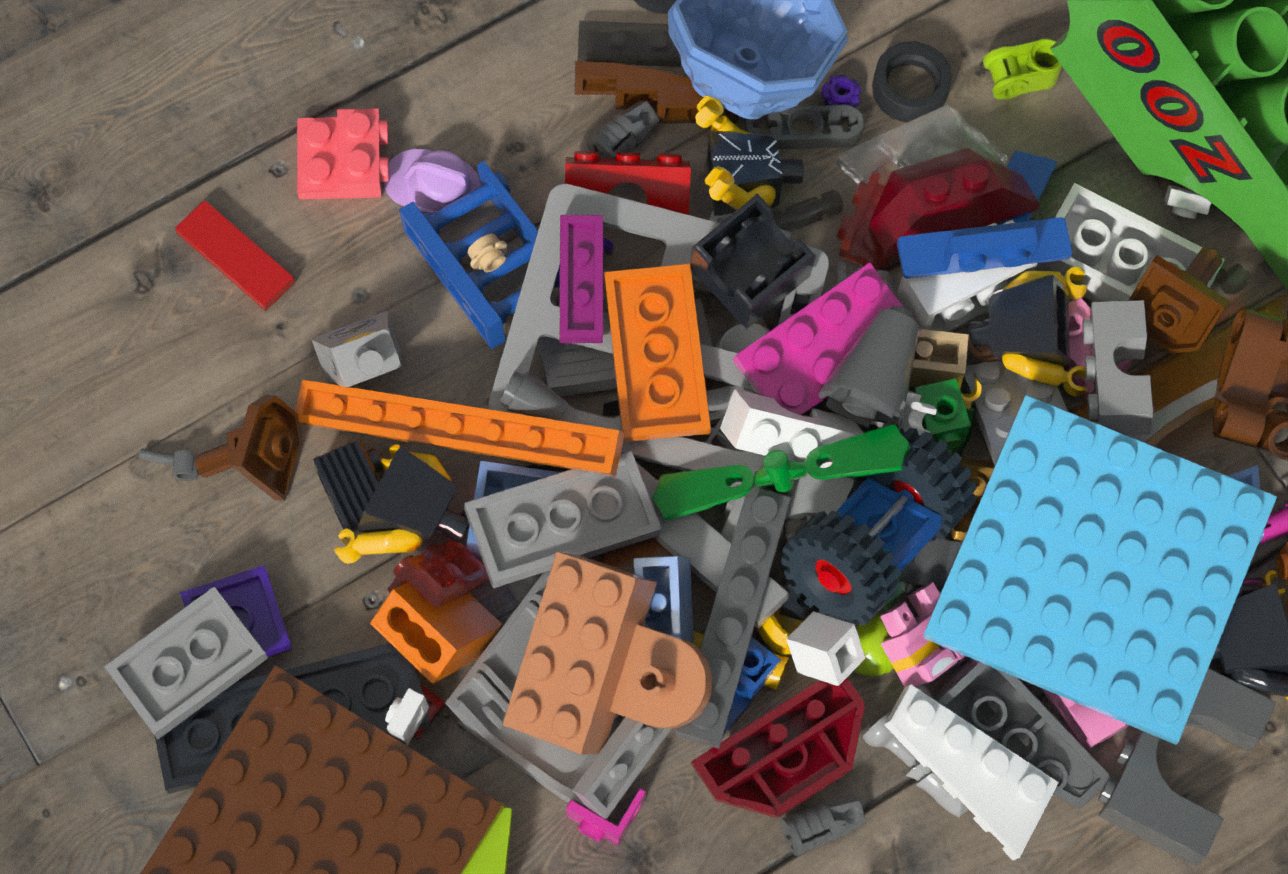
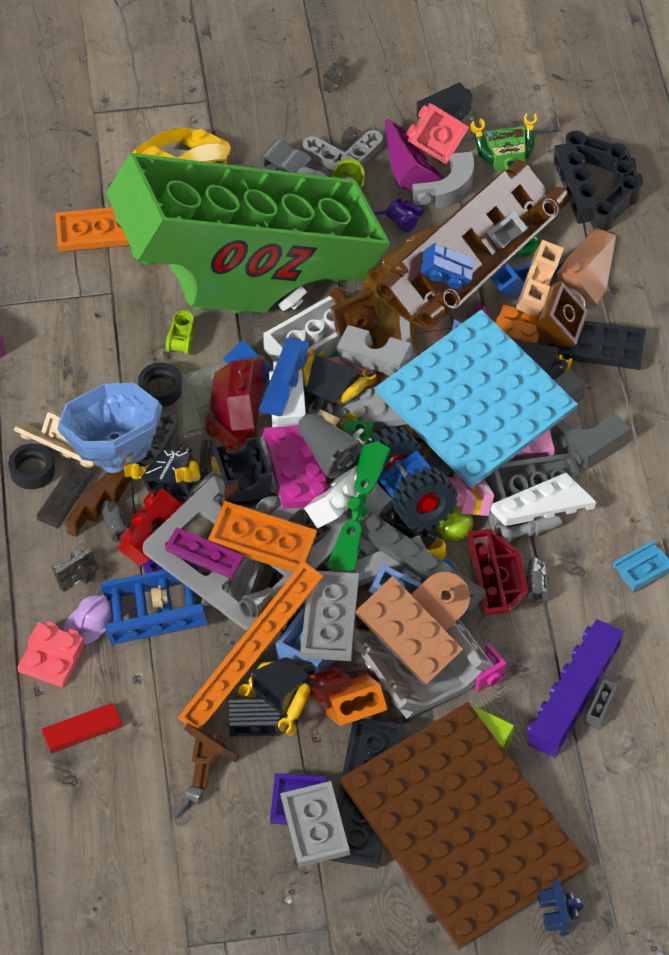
camera: 60 degrees left, 15 degrees down
(359, 350) = (178, 681): light grey torso -> none
(406, 715) = (398, 726): white plate -> none
(503, 119) = (76, 569): none -> clear smoke hips
(825, 648) = (455, 531): white brick -> none

